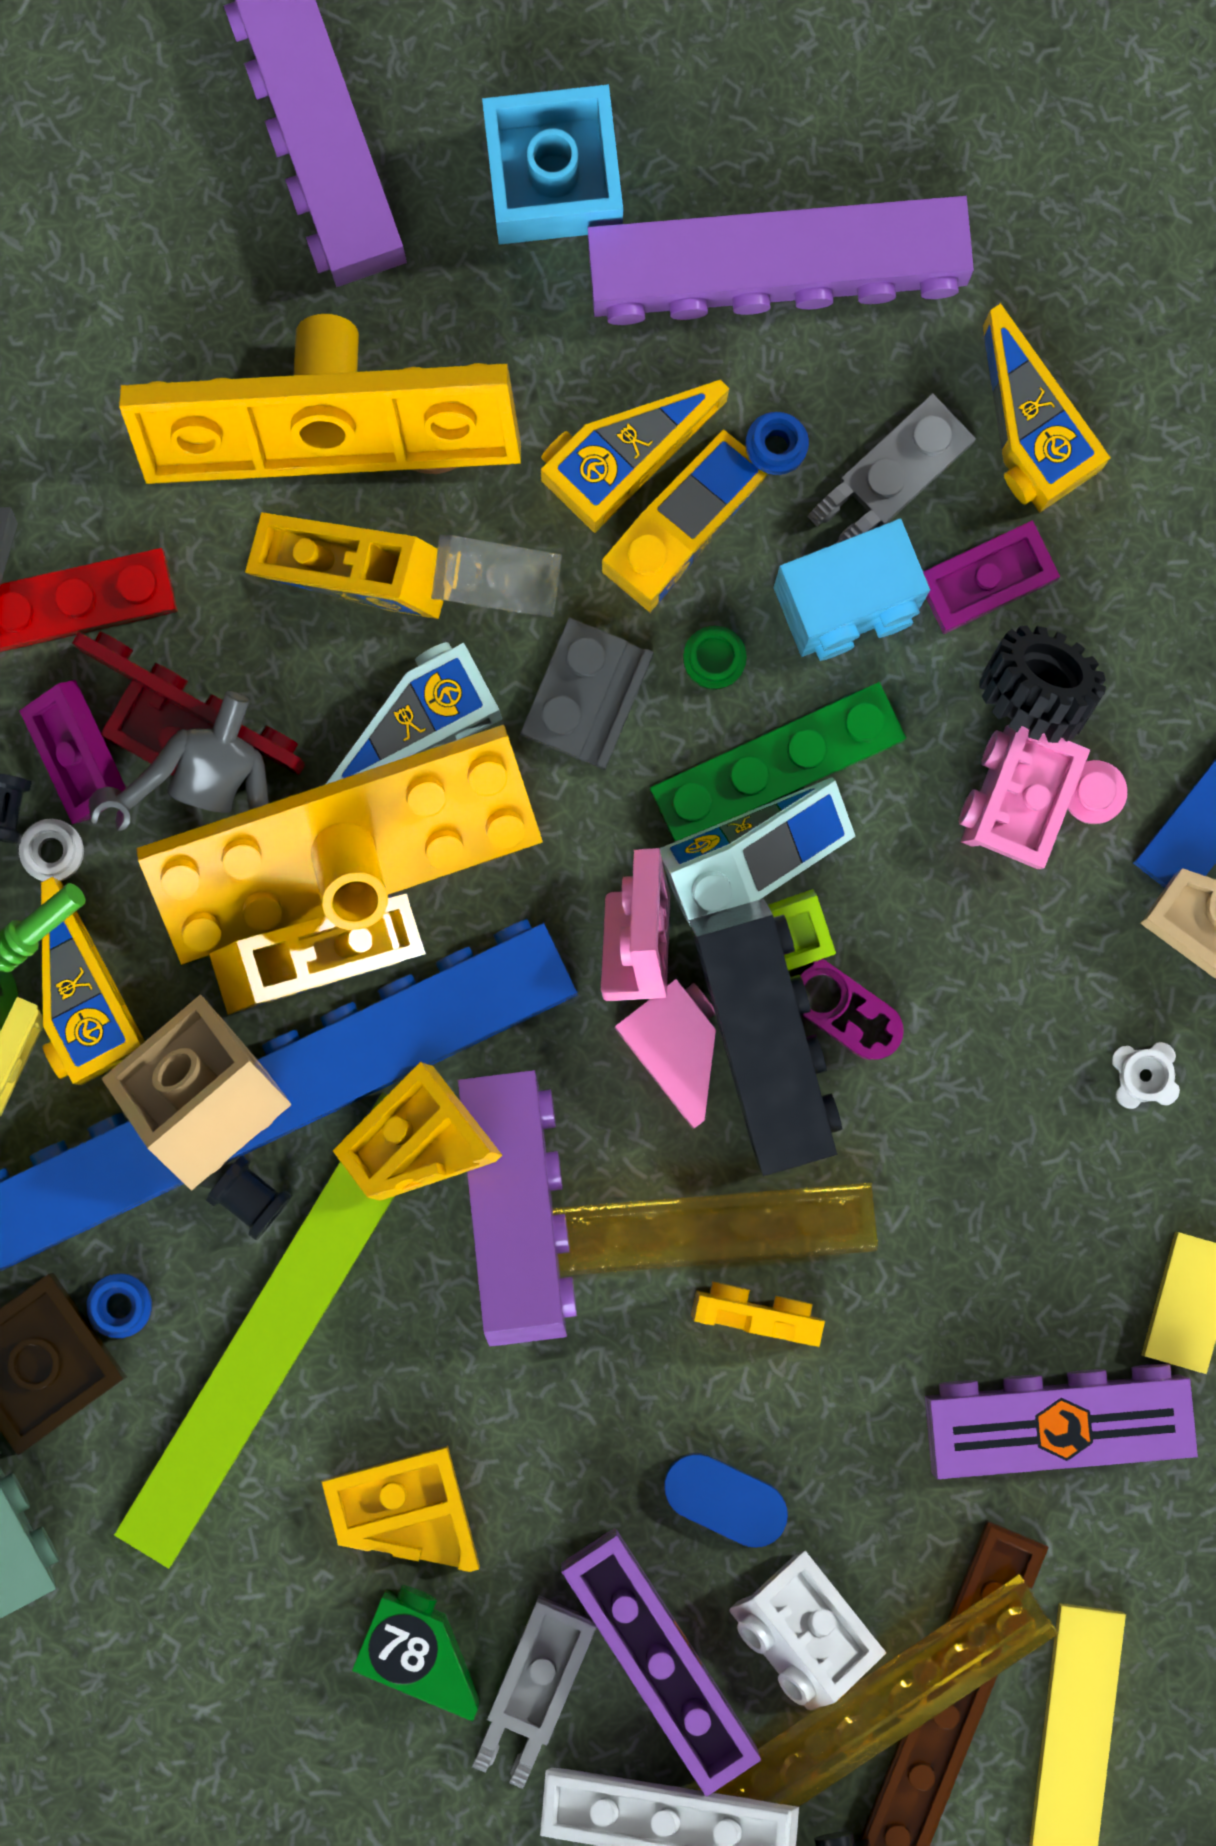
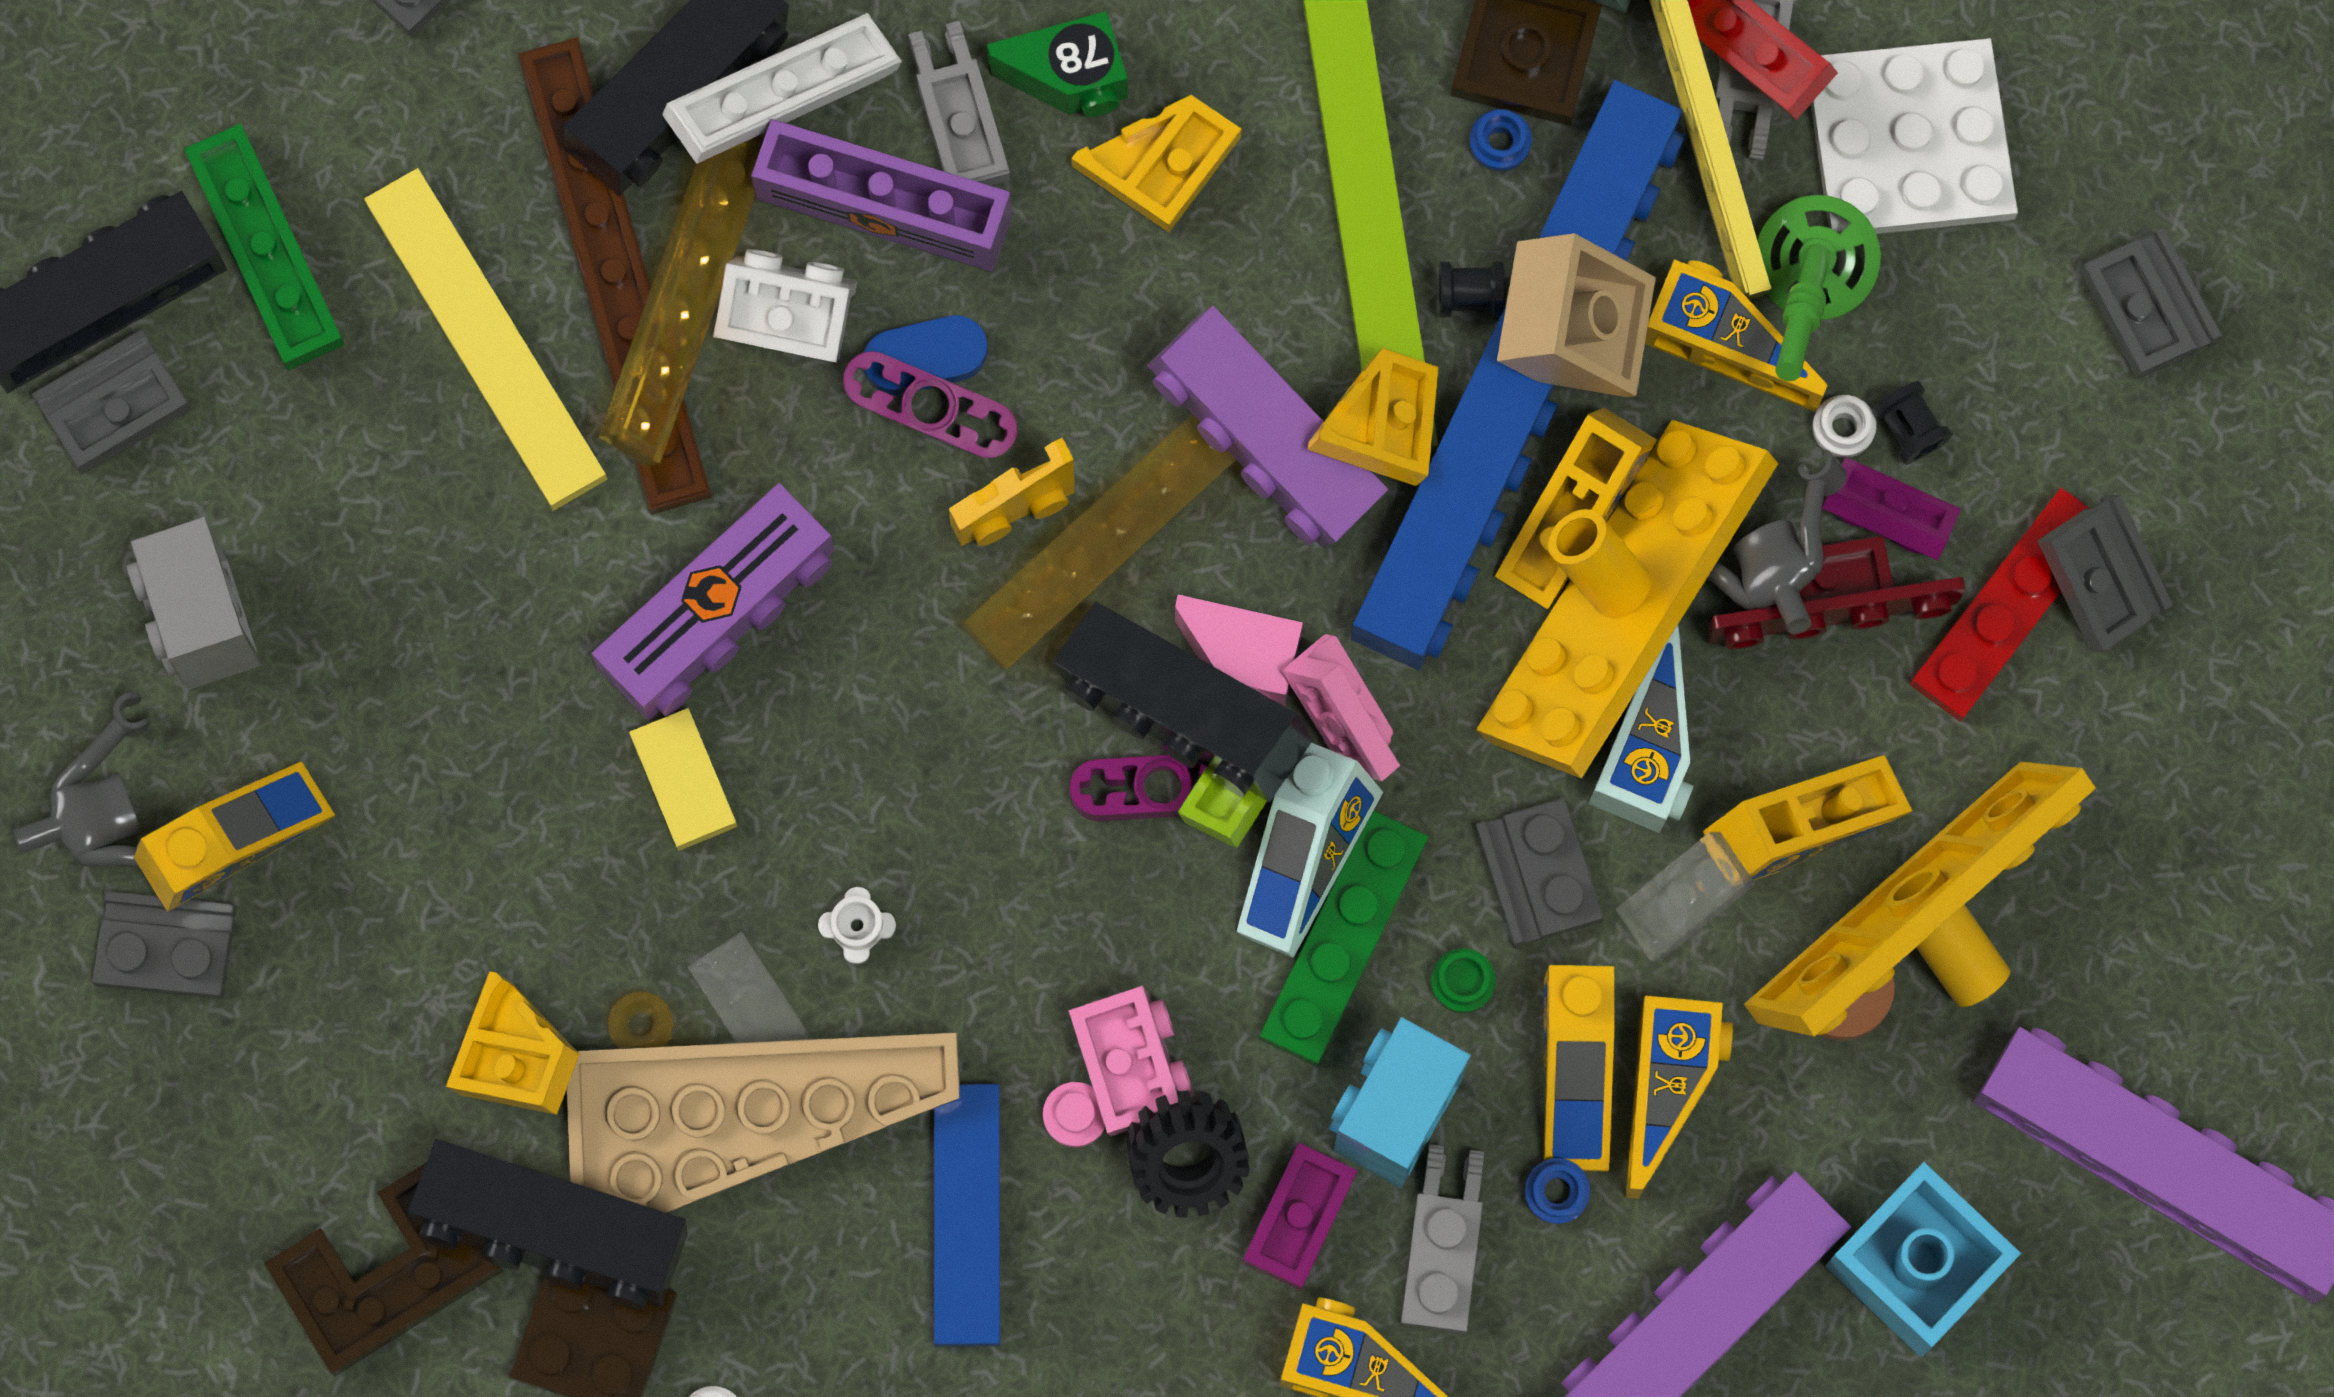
camera: 140 degrees right, 10 degrees down
(797, 1486) = (967, 436): none -> magenta beam

